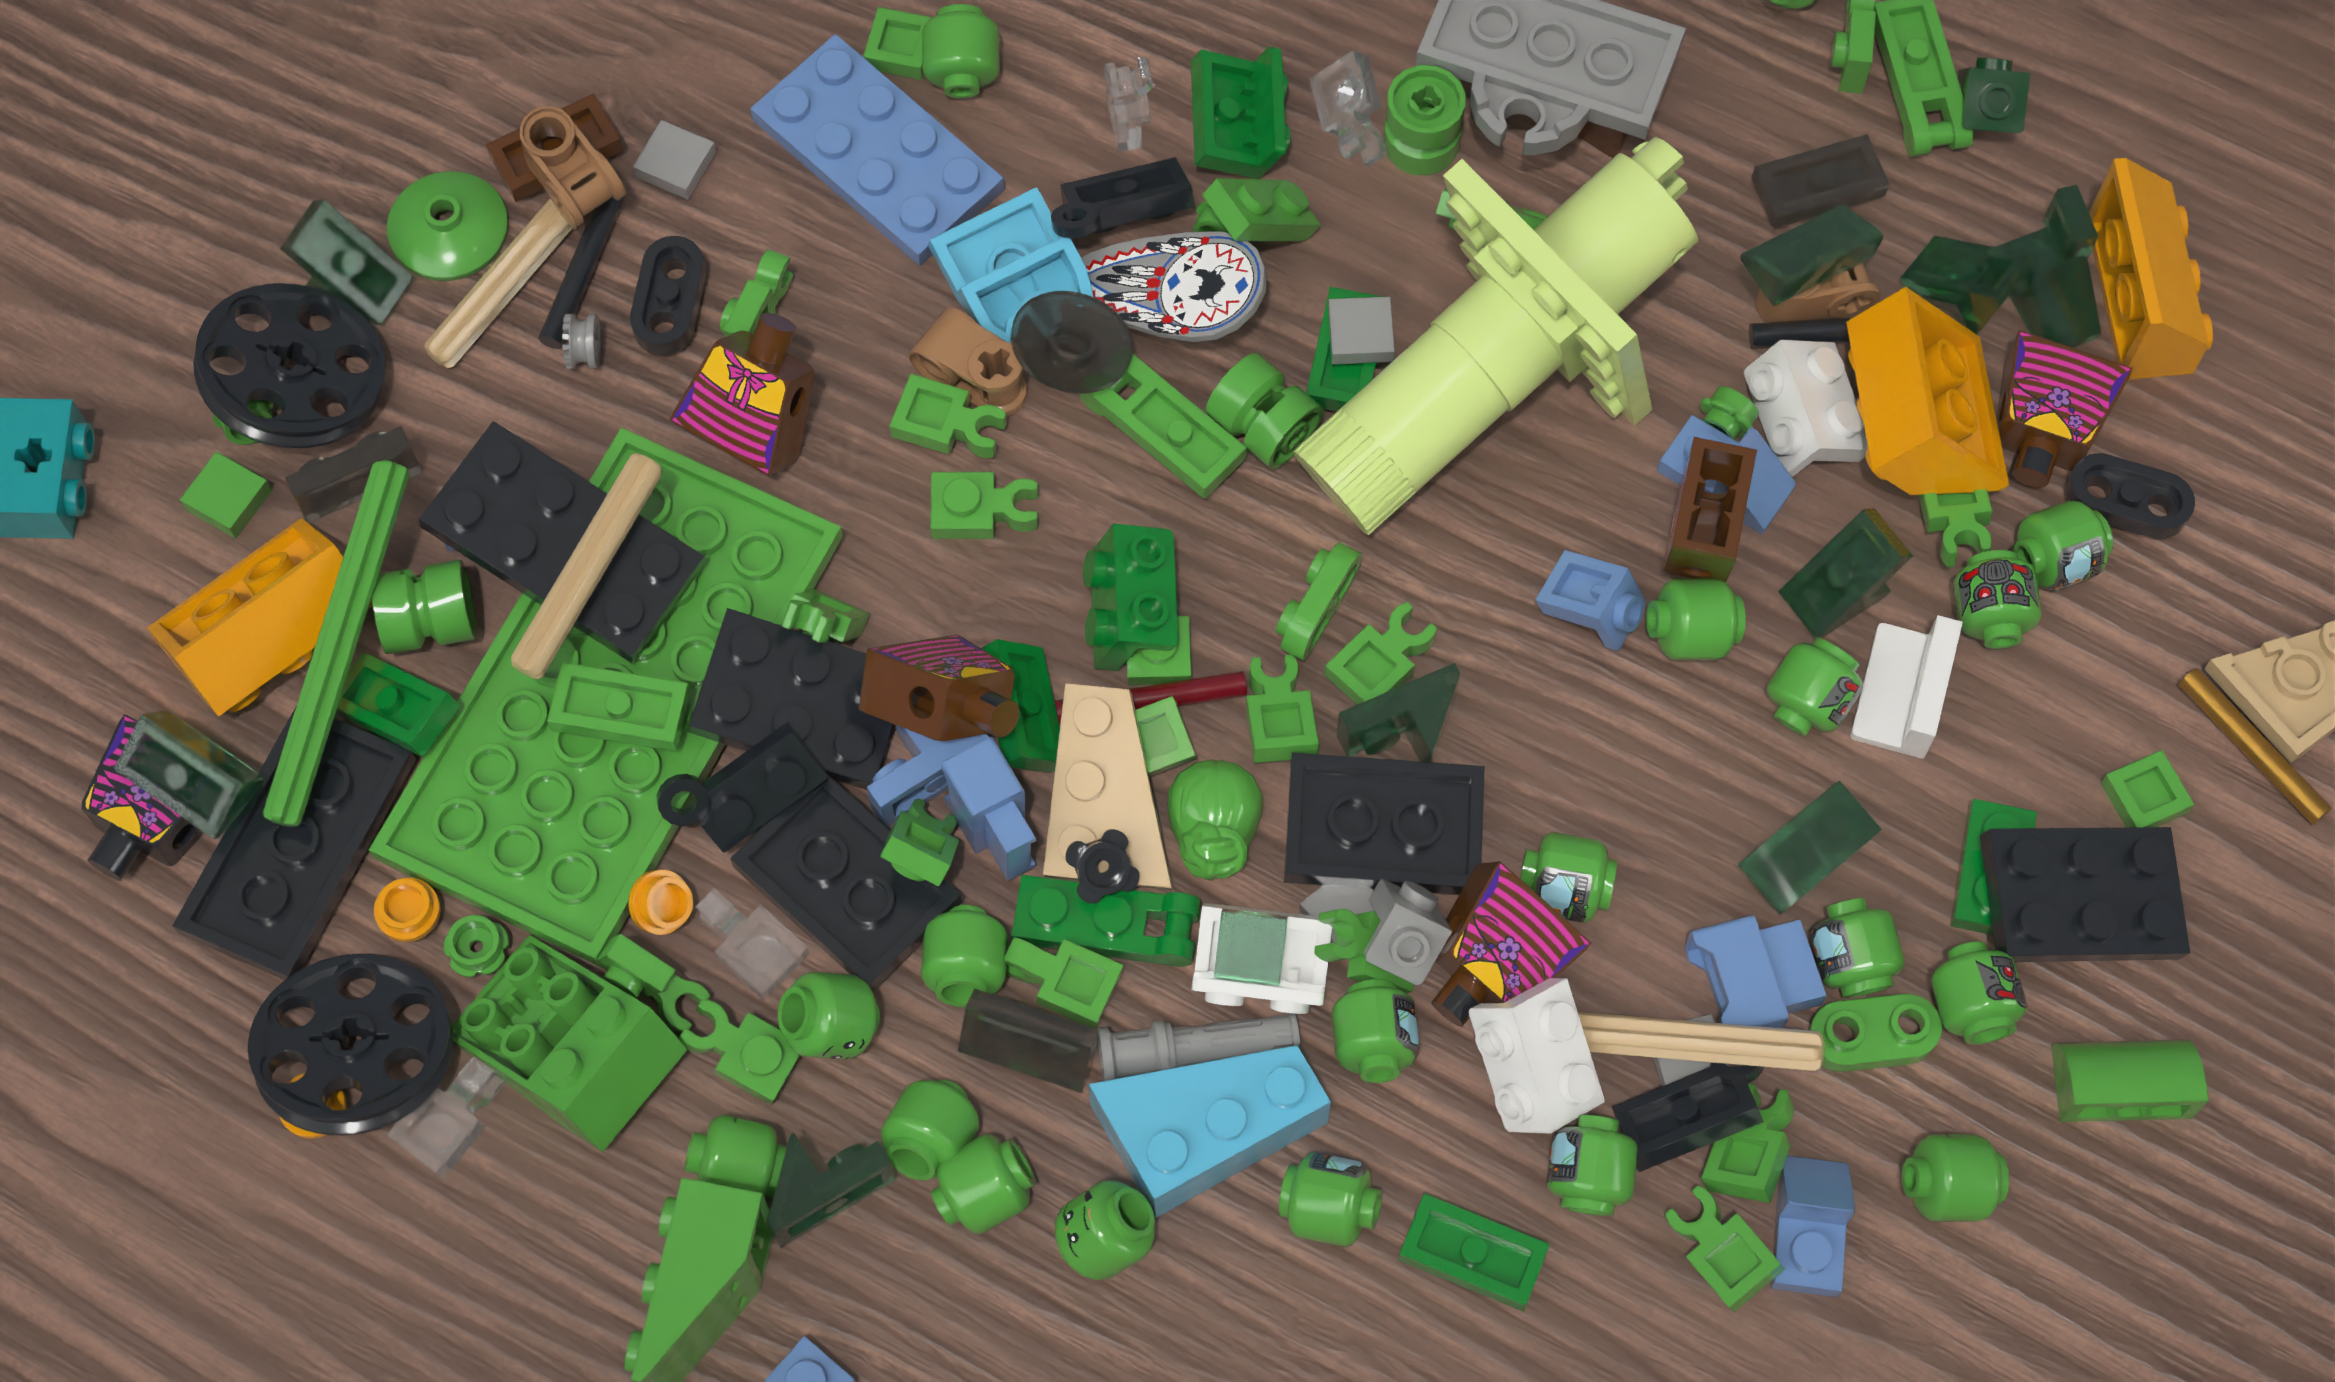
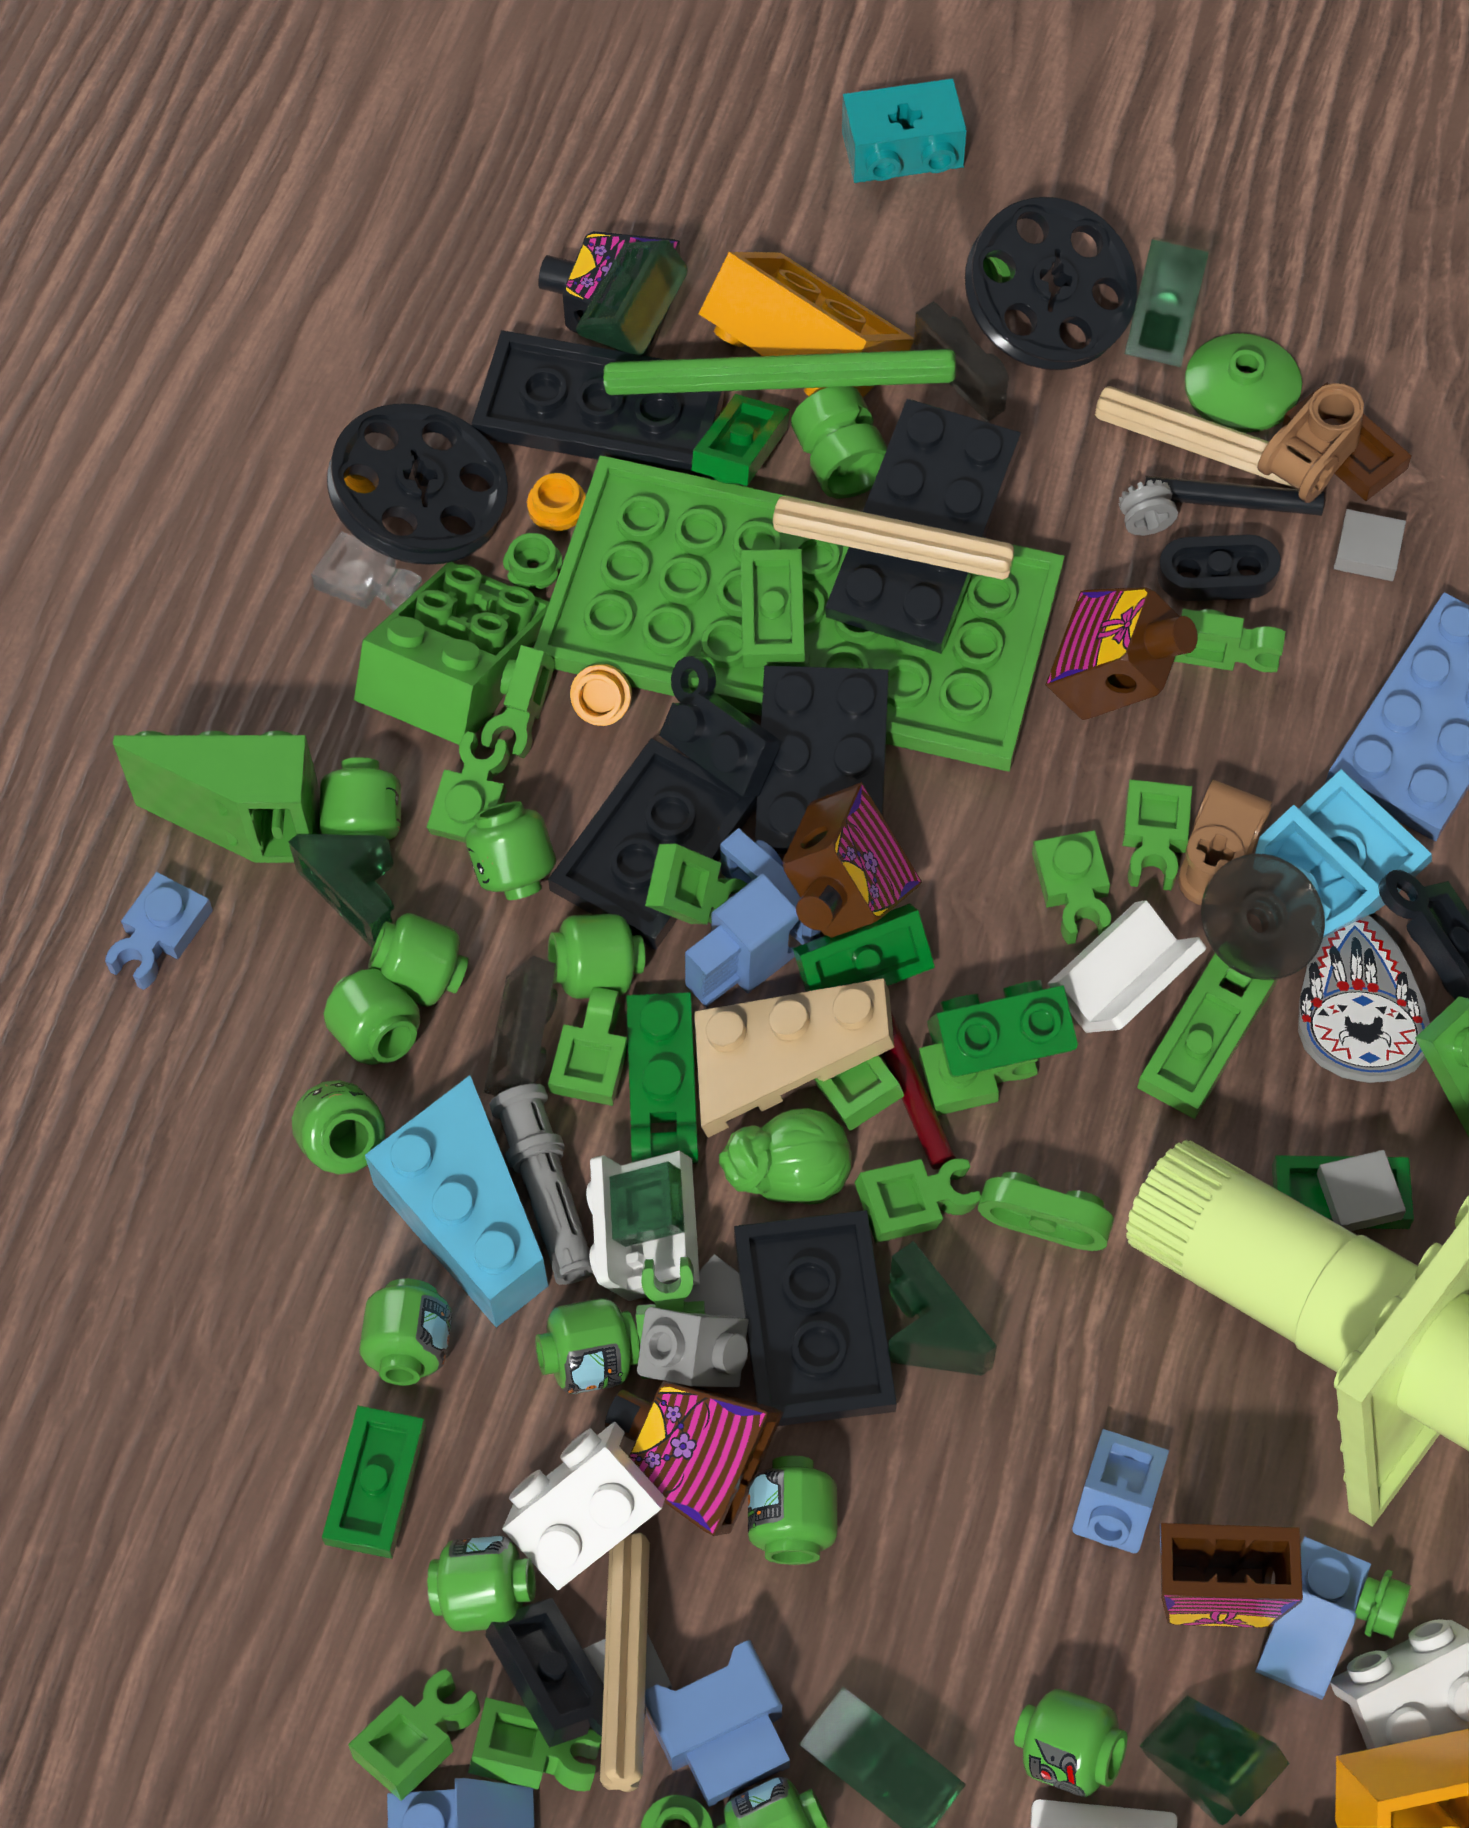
camera: 80 degrees right, 5 degrees down
(225, 495) = (920, 276): bright green tile -> none
(754, 947) = (575, 781): clear plate -> none
(824, 617) = (913, 761): bright green plate -> none
(1093, 472) = (1124, 969): none -> white panel
(1117, 877) = (685, 1047): black plate -> none
(1257, 404) = (1246, 1112): bright green wheel -> none
(1378, 662) = (991, 1279): bright green plate -> none
(1696, 619) = (1119, 1600): bright green head -> none

